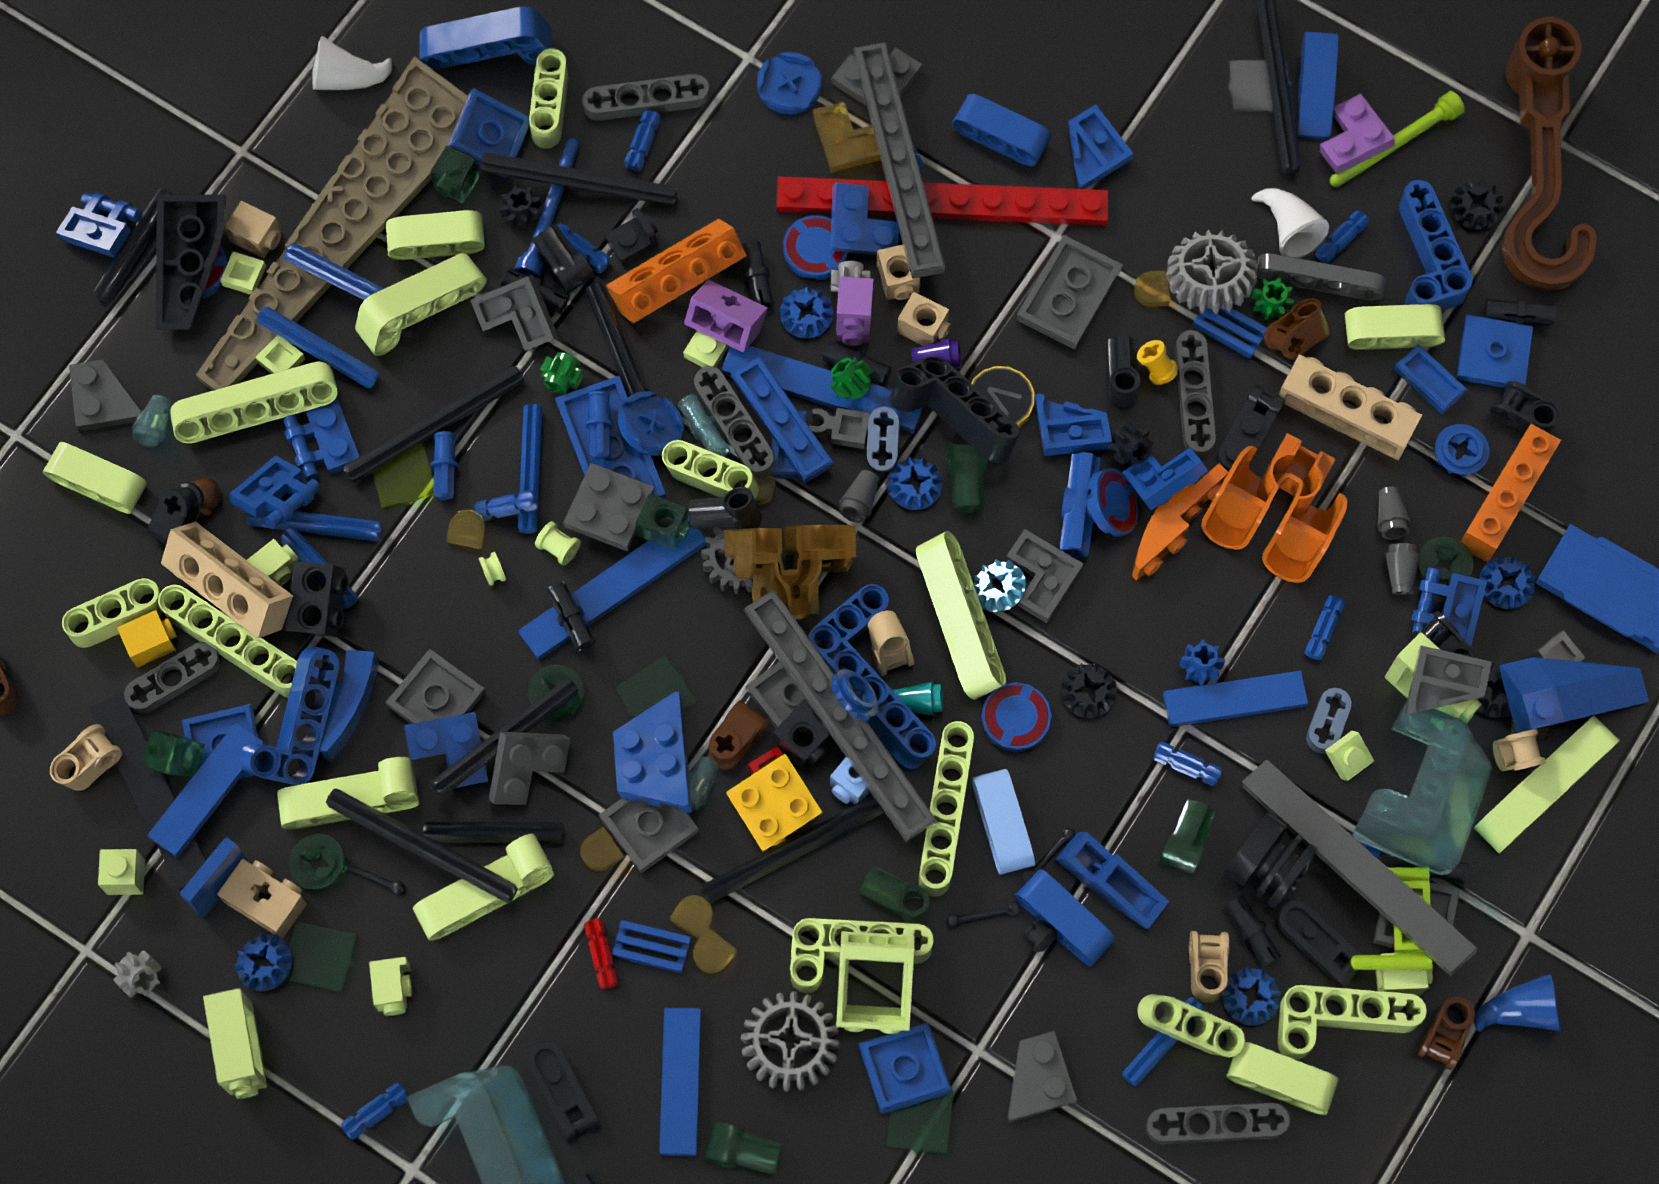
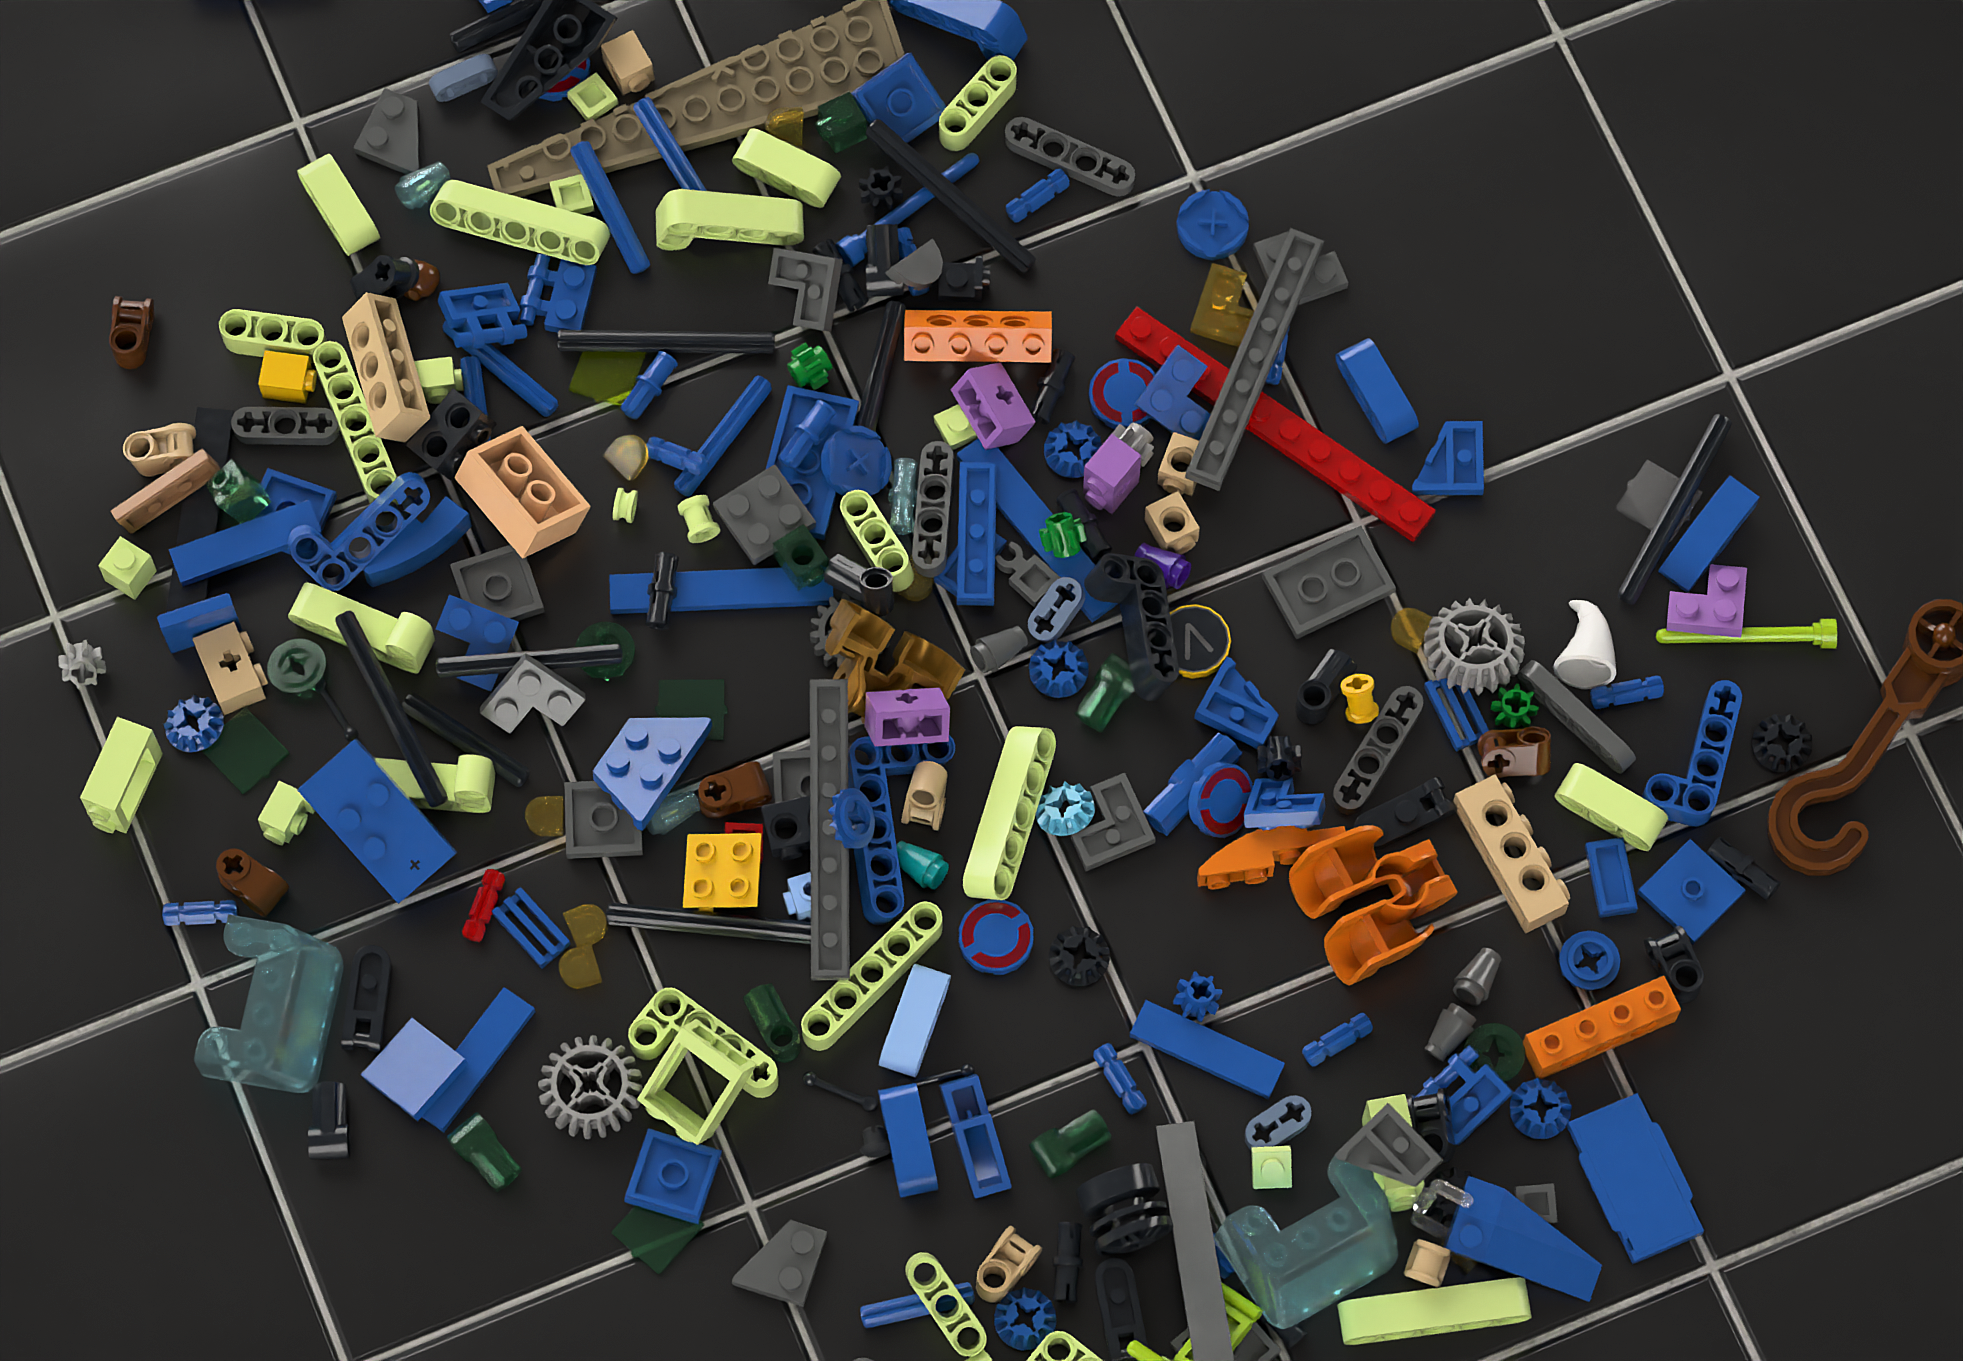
camera: 35 degrees right, 0 degrees up
(112, 790) = (165, 491): none -> medium nougat tile
(128, 319) = (463, 77): none -> sand blue beam
(405, 608) = (522, 491): none -> light nougat brick
(406, 1058) = (255, 885): none -> reddish brown piece
(412, 201) = (786, 124): none -> clear yellow tile
(474, 941) = (377, 820): none -> blue brick
(594, 247) = (918, 268): none -> dark grey tile
(640, 1121) = (414, 1069): none -> tile
(837, 589) = (907, 716): none -> medium lavender brick
(1487, 701) = (1425, 1200): none -> clear piece

